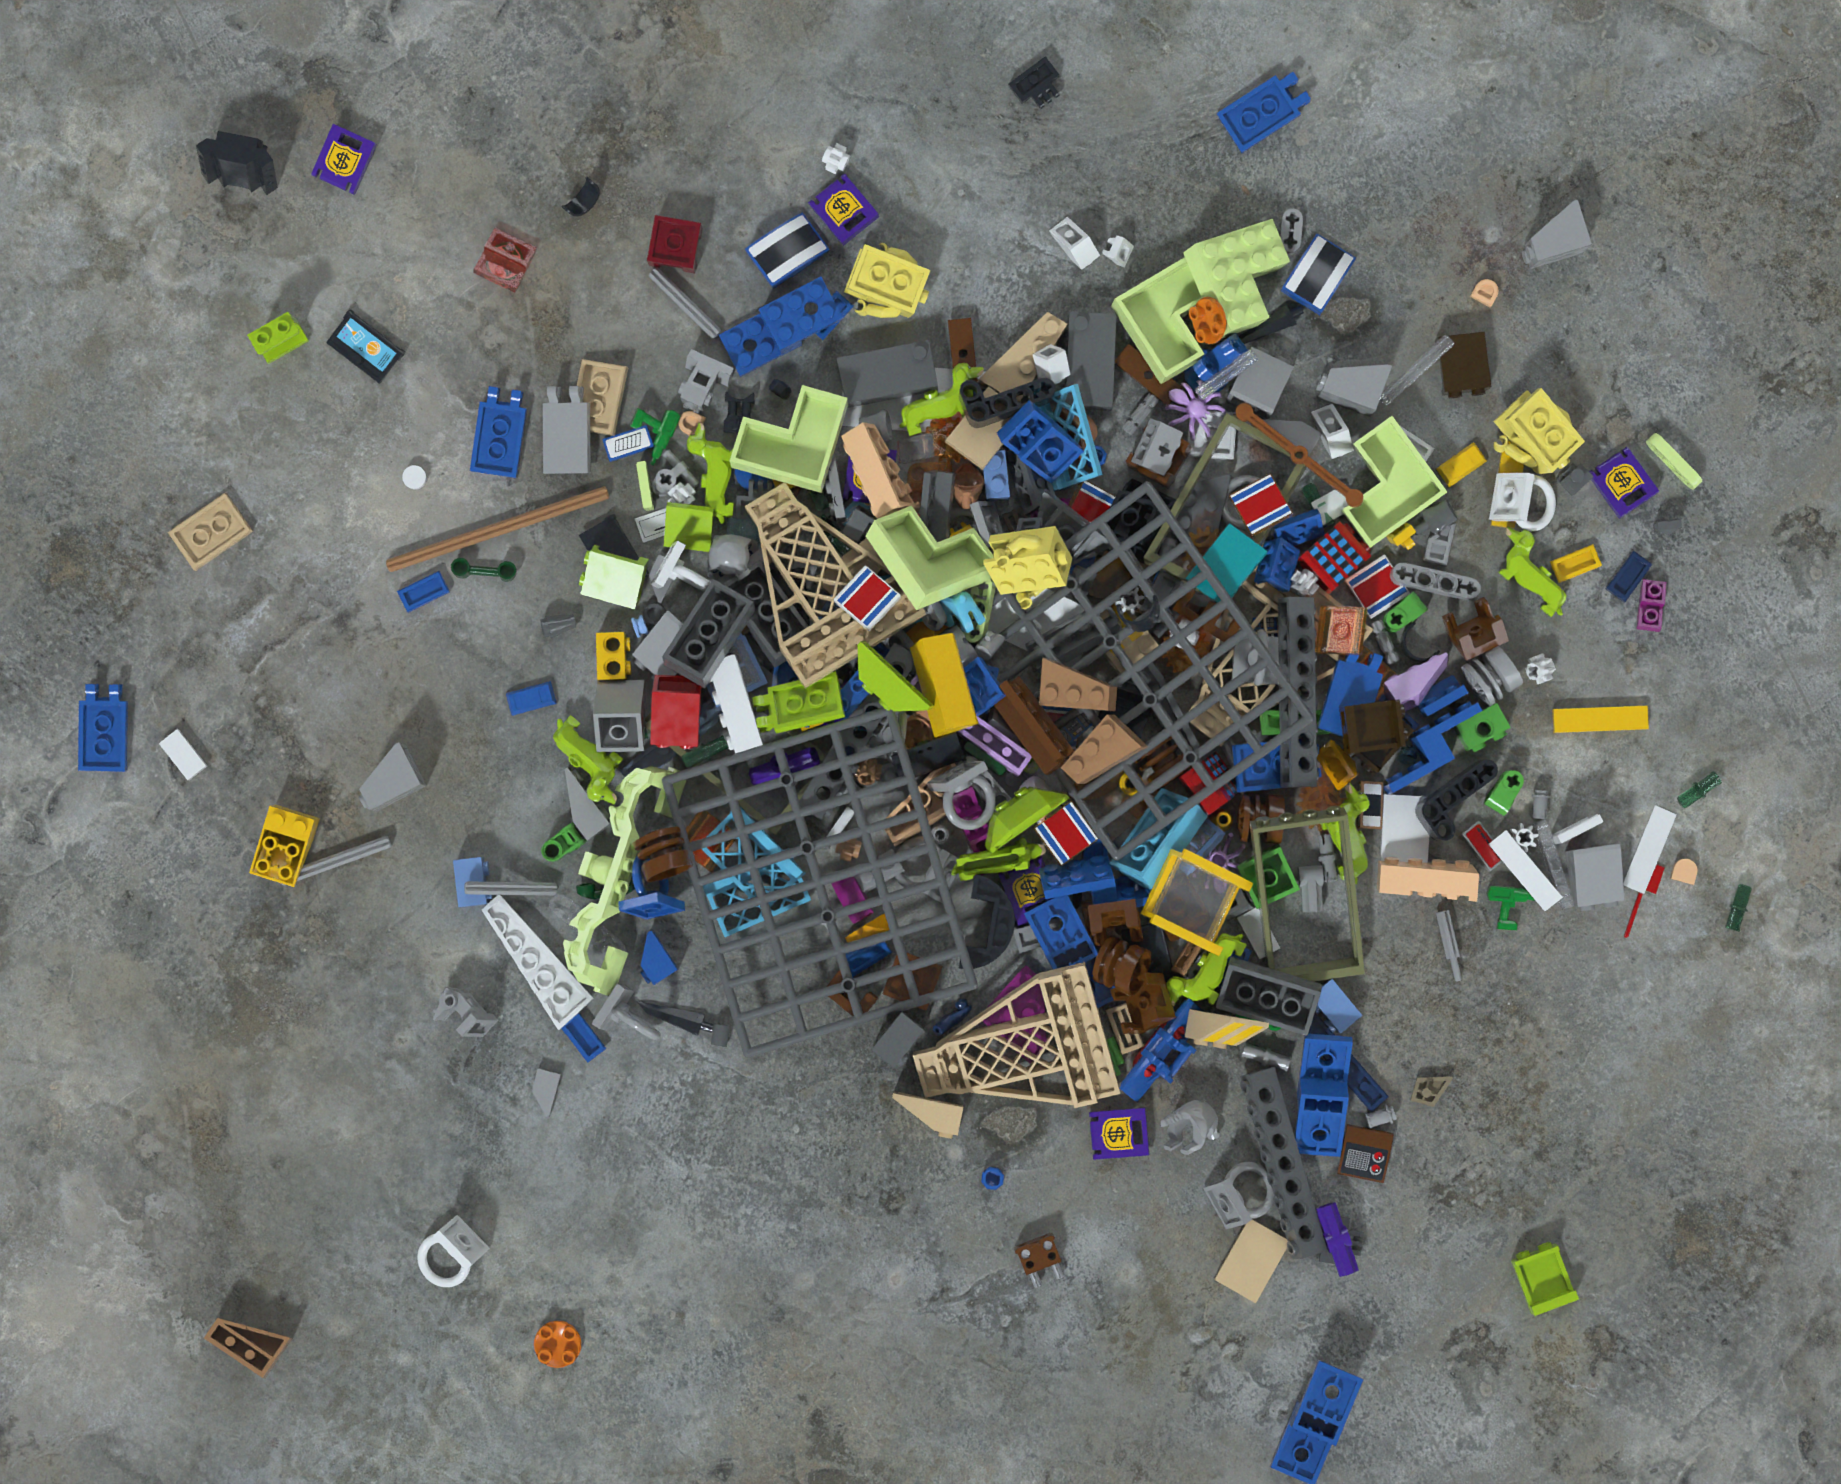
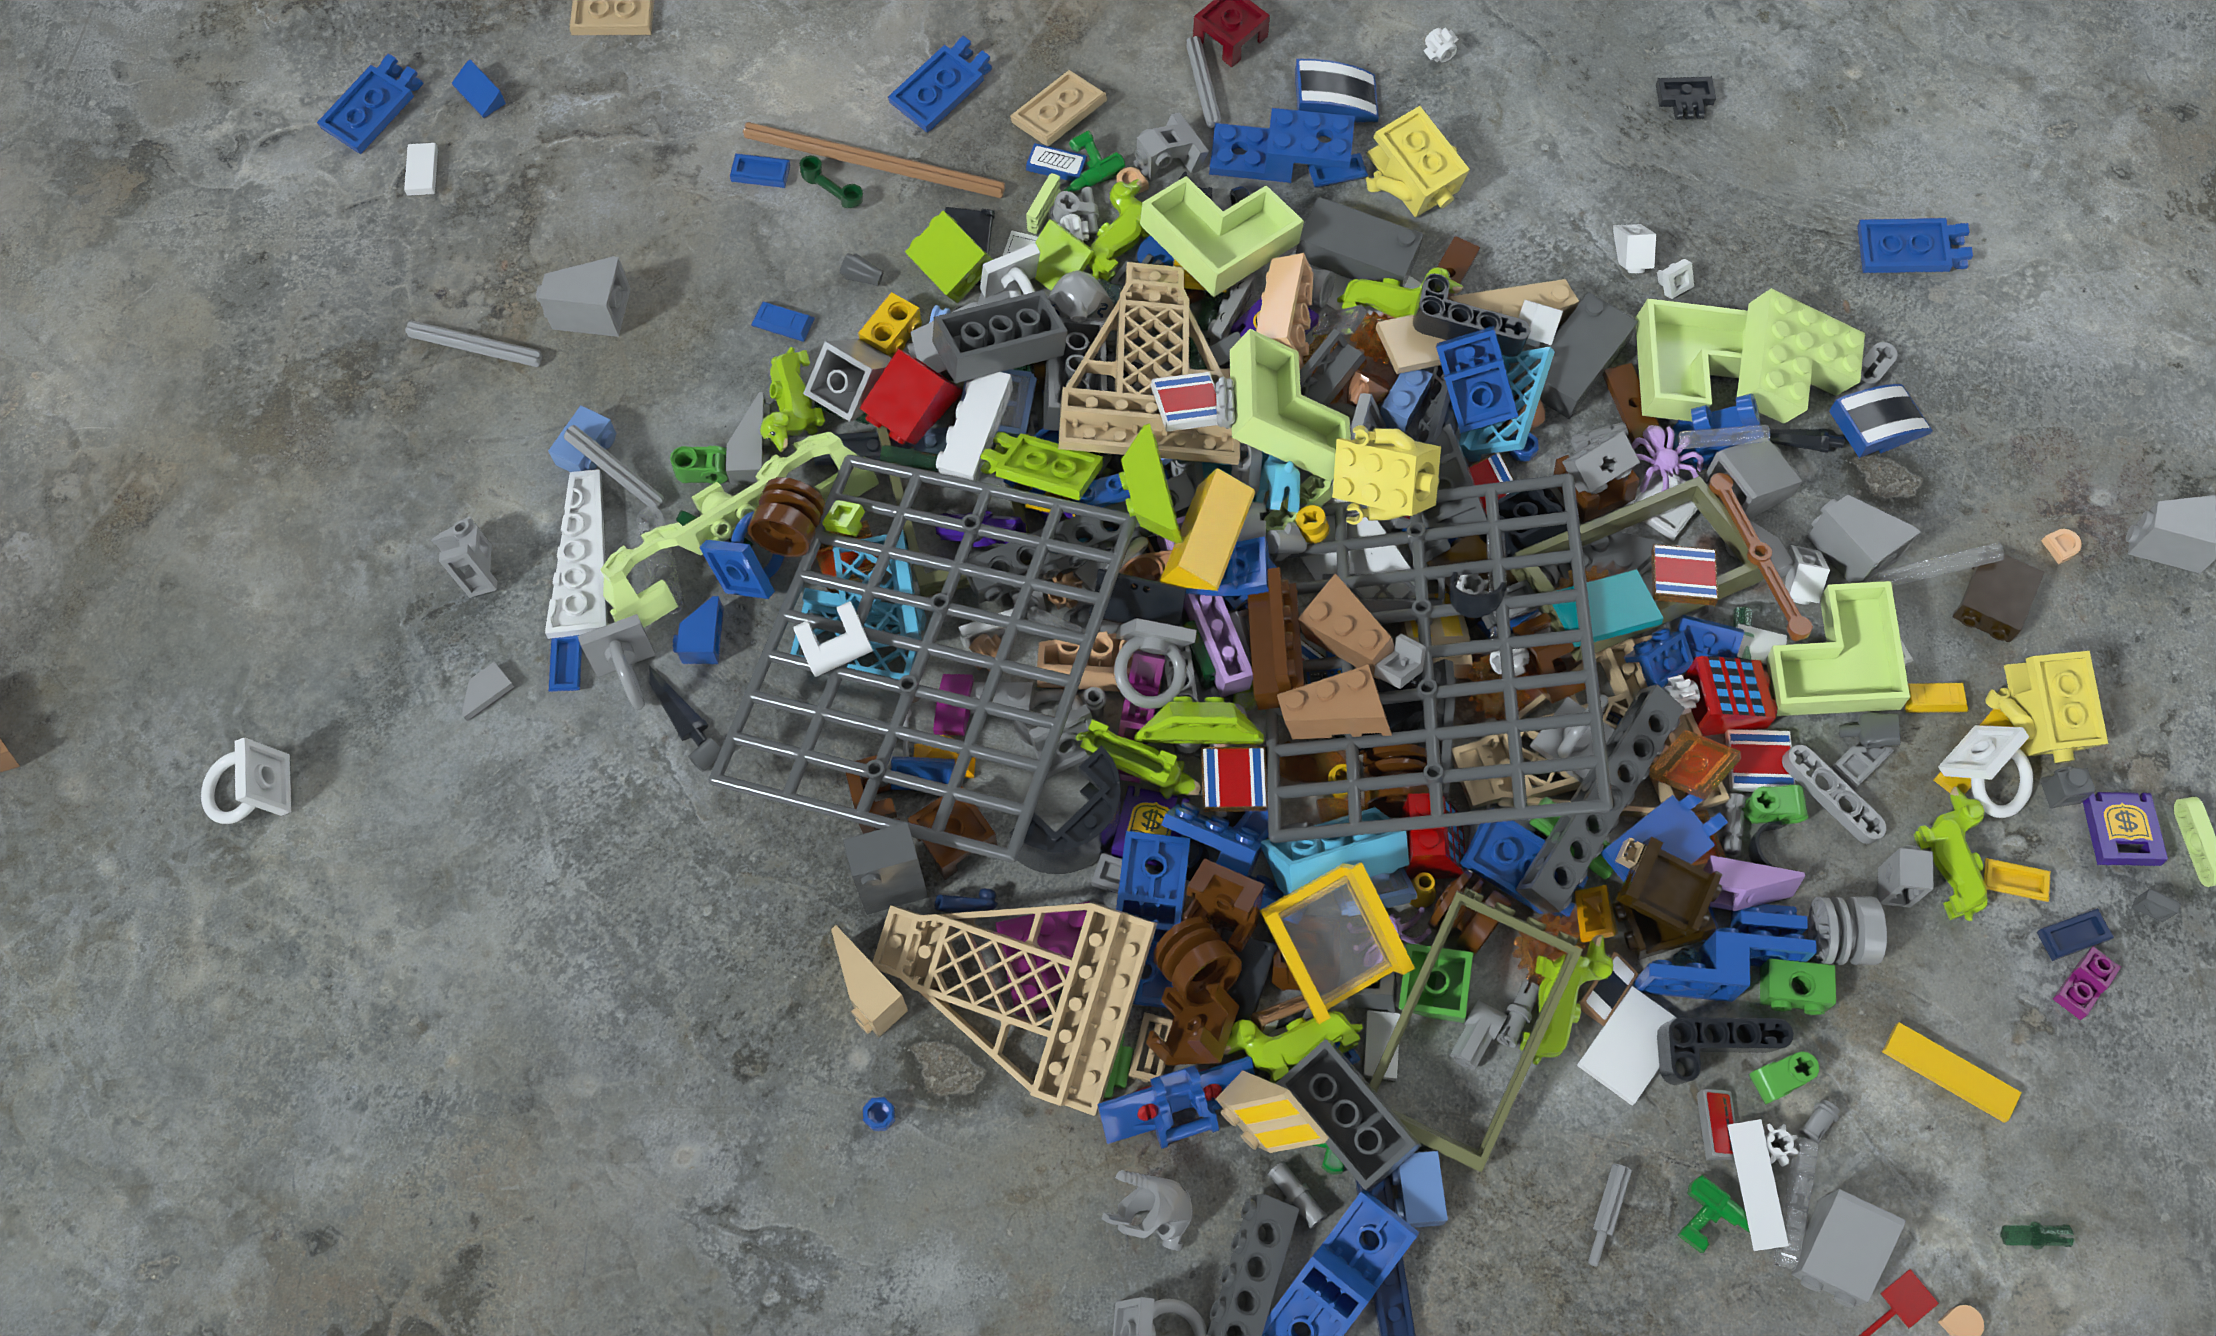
camera: 30 degrees right, 20 degrees down
(169, 665) = (478, 89): none -> blue slope
(283, 845) = (438, 293): yellow slope -> none
(414, 477) = (833, 74): white tile -> none
(557, 1344) = (267, 961): orange dish -> none
(566, 433) = (1004, 115): light grey tile -> none
(697, 827) = (844, 518): none -> lime tile
(766, 924) = (837, 650): none -> white connector
(841, 204) = (1416, 85): dark purple container -> none
(894, 586) = (1225, 402): none -> light grey axle
(1003, 620) = (1312, 531): none -> yellow wheel
(1037, 1252) = (866, 1238): reddish brown piece -> none
(1115, 1133) = (1055, 1160): dark purple container -> none
(1125, 696) = (1403, 663): none -> light grey bracket
(1208, 320) = (1738, 370): orange dish -> none
(1336, 720) = (1629, 853): none -> tan piece
(1402, 536) = (1823, 725): yellow tile -> none
(1428, 878) = (1628, 1113): light nougat wedge -> none
(1478, 633) = (1872, 879): reddish brown panel -> none
(1510, 612) = (1905, 877): none -> light grey brick
(1540, 668) = (1909, 964): white gear -> none
(1577, 828) = (1855, 1174): white tile -> none
(1649, 849) = (1930, 1268): white sticker -> none

